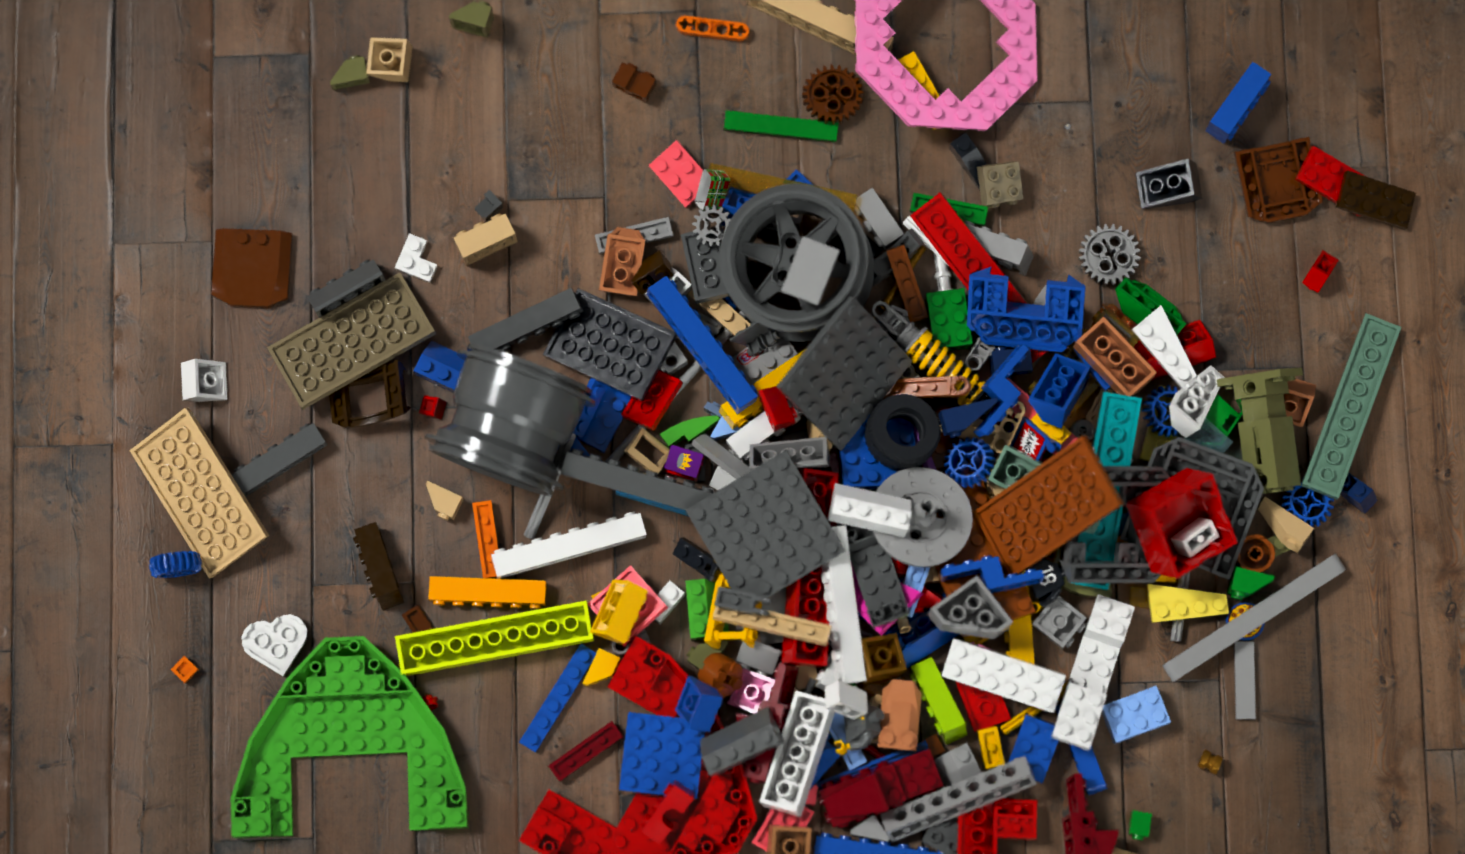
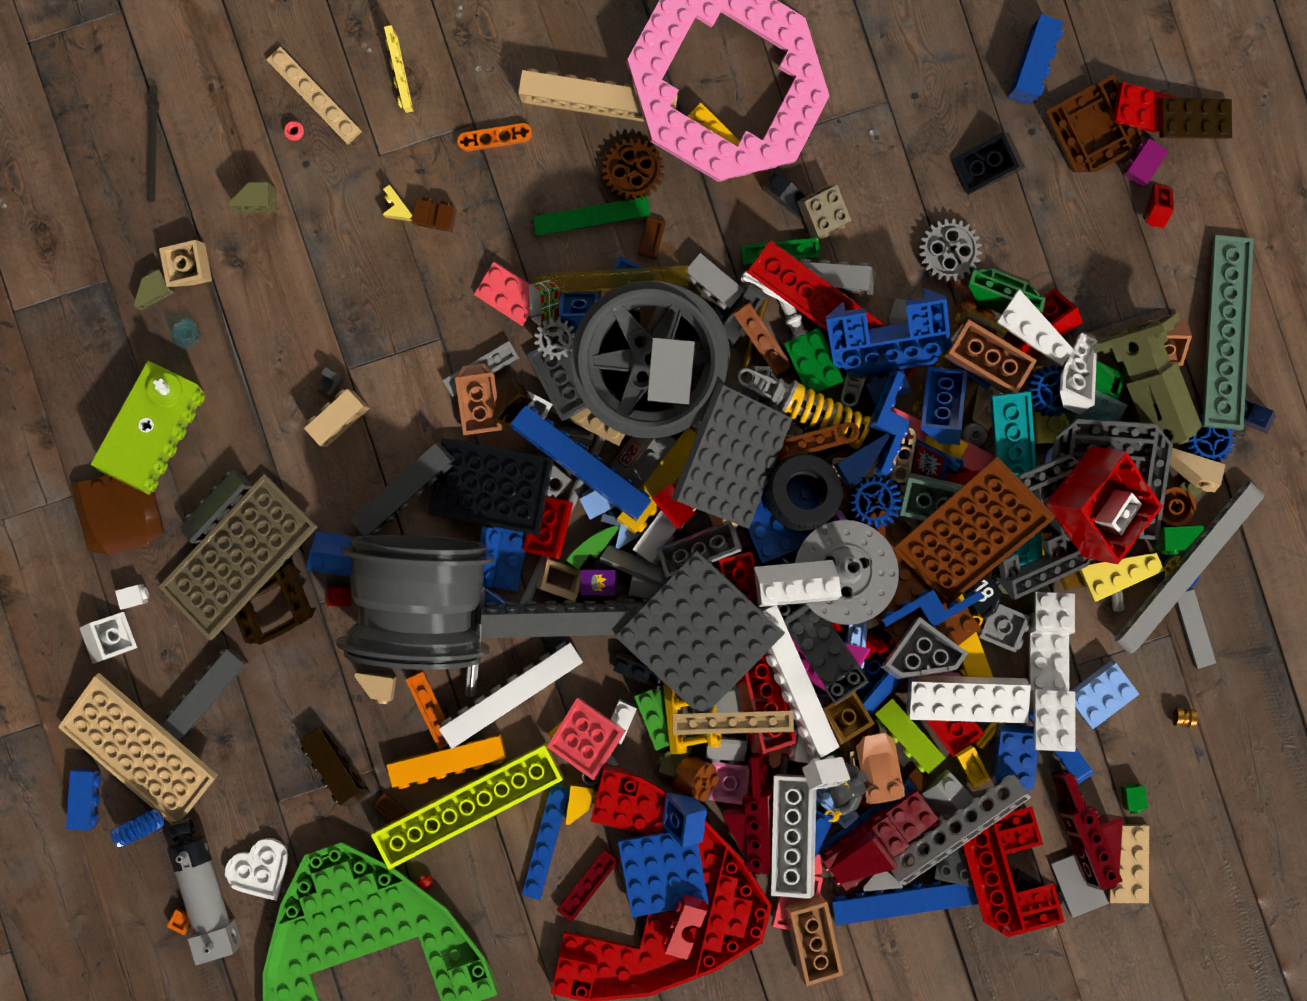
camera: 20 degrees left, 10 degrees up
(131, 525) = (83, 799): none -> blue brick
(215, 640) = (191, 861): none -> light grey piece
(239, 349) = (132, 596): none -> white brick
(308, 196) = (148, 428): none -> lime piece
(368, 122) = (185, 334): none -> clear light blue hair
(411, 261) = (271, 459): white plate -> none
(601, 69) = (399, 210): none -> light yellow slope
(619, 611) = (580, 750): yellow slope -> none
(704, 390) = (594, 503): none -> light blue slope
(740, 601) = (696, 713): dark grey hinge -> none
(740, 742) = (736, 844): dark grey slope -> none
(756, 338) = (630, 443): dark grey hinge -> none
(831, 162) = (651, 237): none -> reddish brown tile
(1317, 227) = (1145, 162): none -> magenta brick

